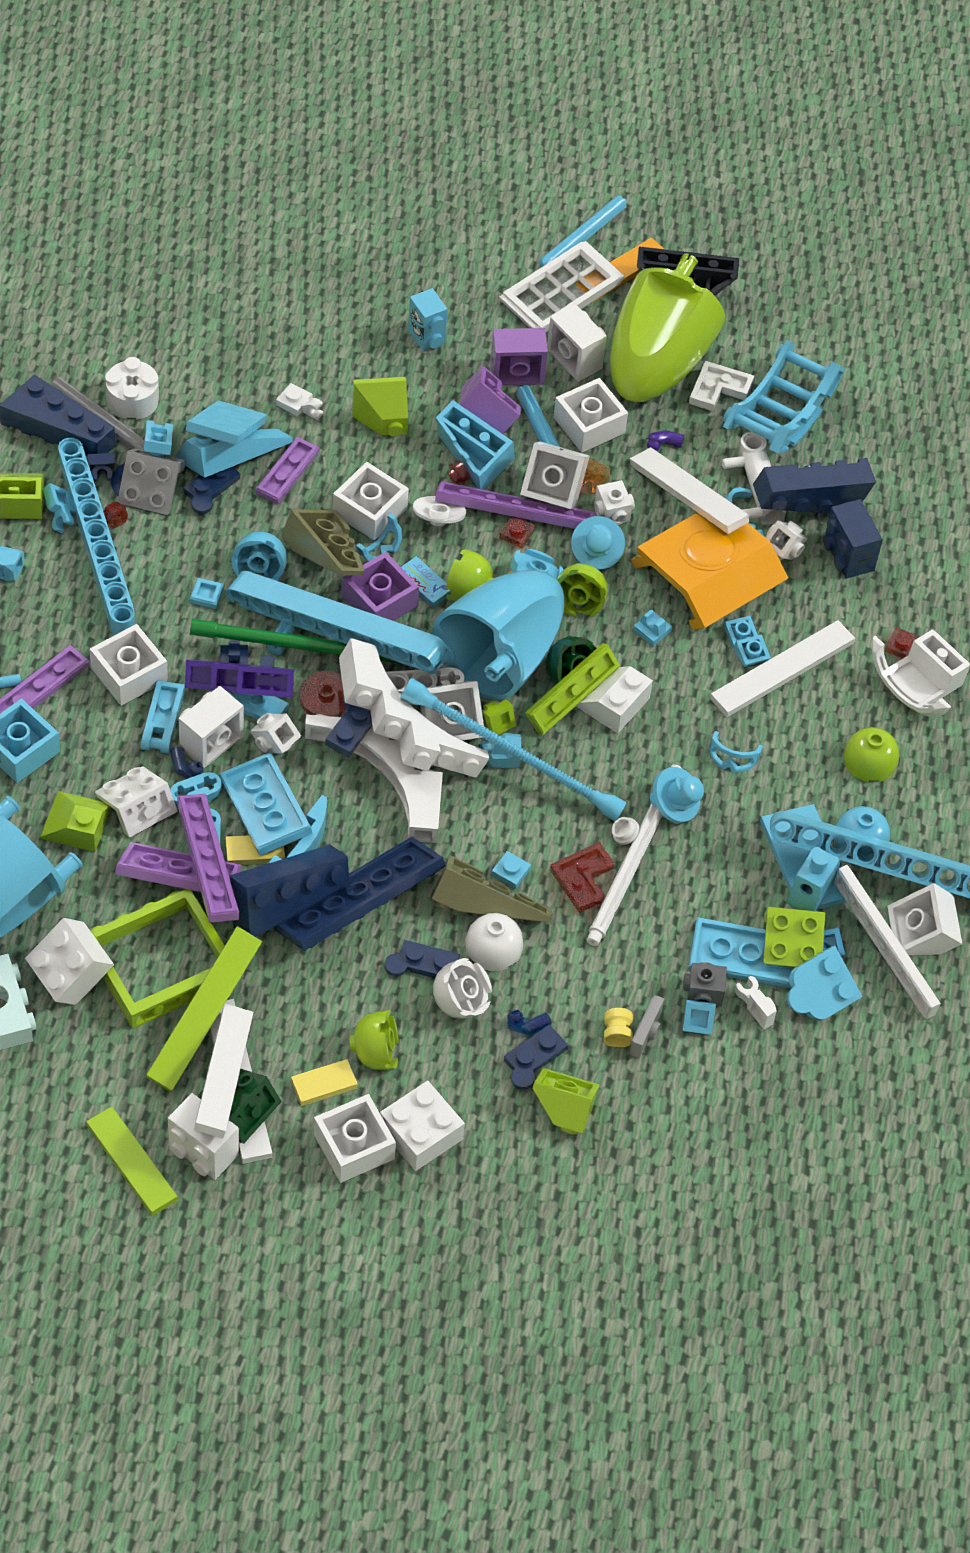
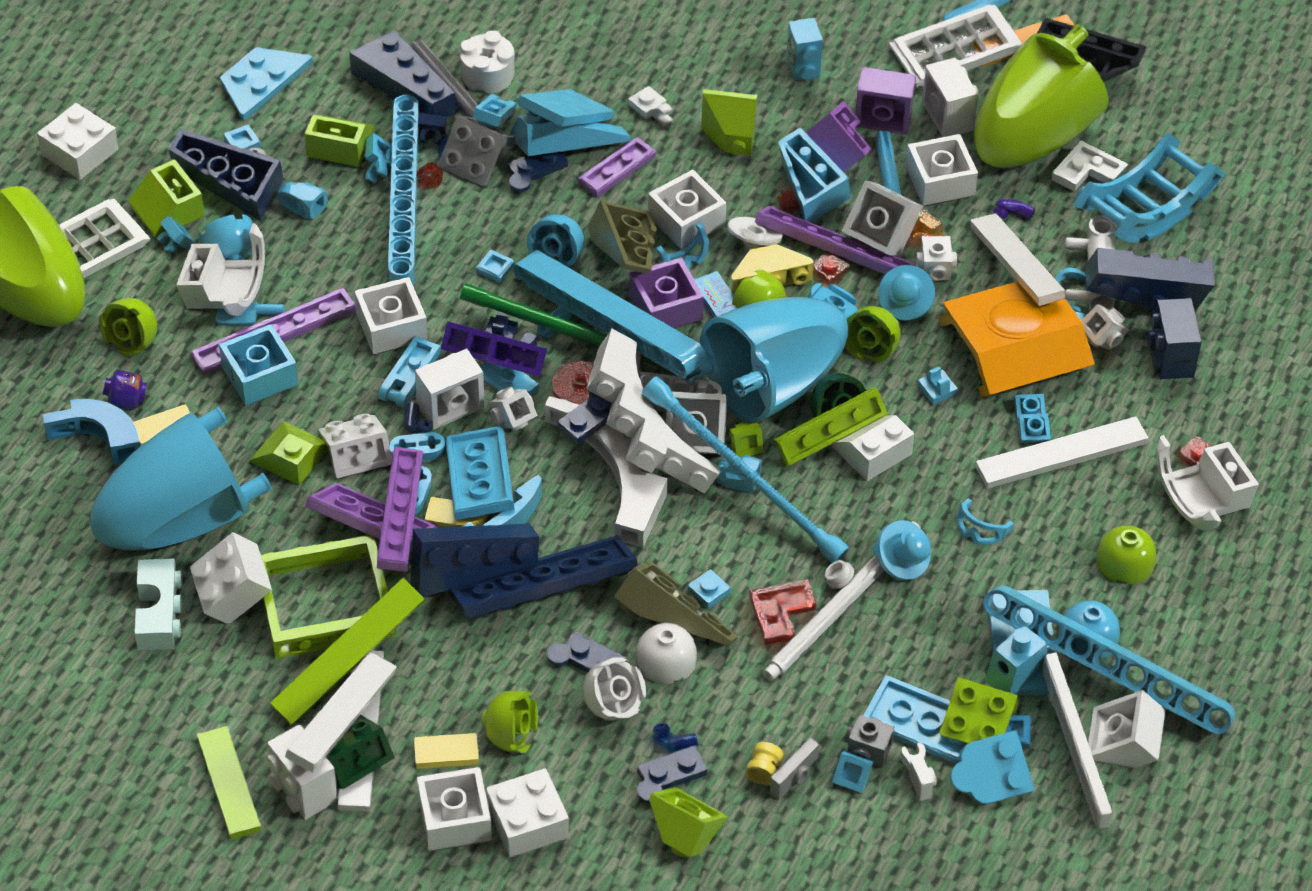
camera: 20 degrees right, 5 degrees down
(468, 535) = (779, 261): none -> light yellow slope

